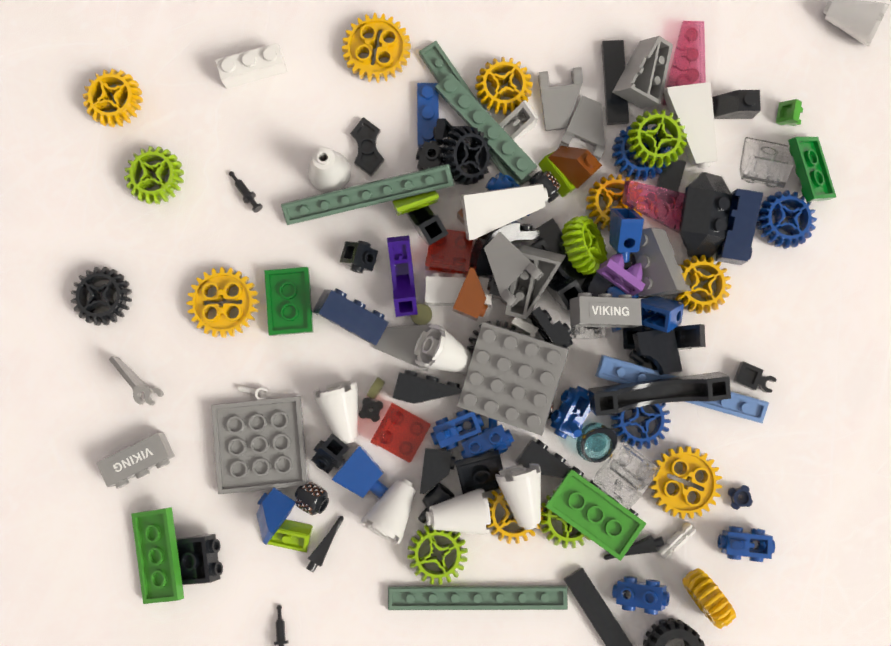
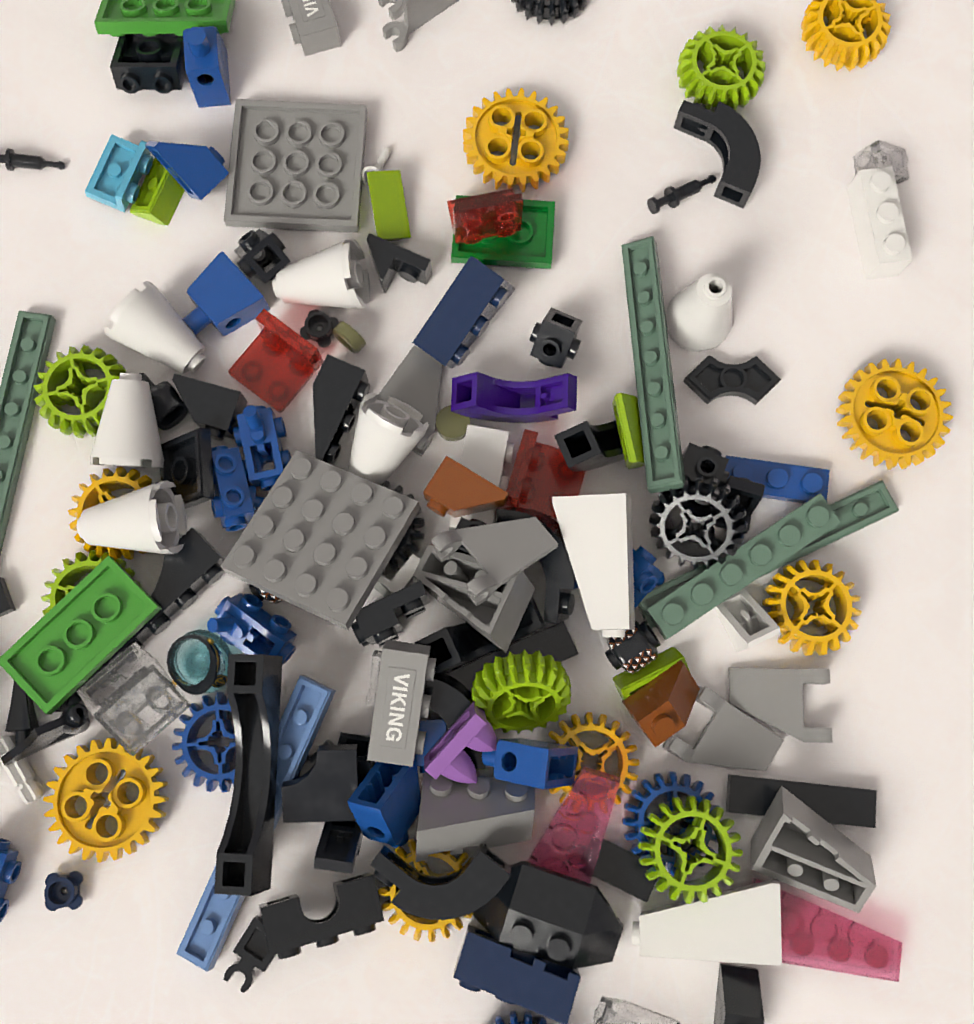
camera: 100 degrees right, 5 degrees down
(197, 517) = (207, 55): none -> blue torso
(207, 68) = (883, 155): none -> clear bracket
(209, 159) = (732, 140): none -> black arch
(281, 312) = (485, 216): none -> clear red bracket
(281, 378) = (388, 205): none -> lime slope
(282, 563) = (119, 173): none -> medium azure bracket
(311, 498) = (202, 224): black head -> none
(318, 373) = (391, 258): none -> black slope
(319, 554) = (121, 227): black piece -> none
(646, 512) = (71, 723): none -> black arm
(706, 269) = (444, 895): none -> black arch
(721, 324) = (355, 910): none -> black arch

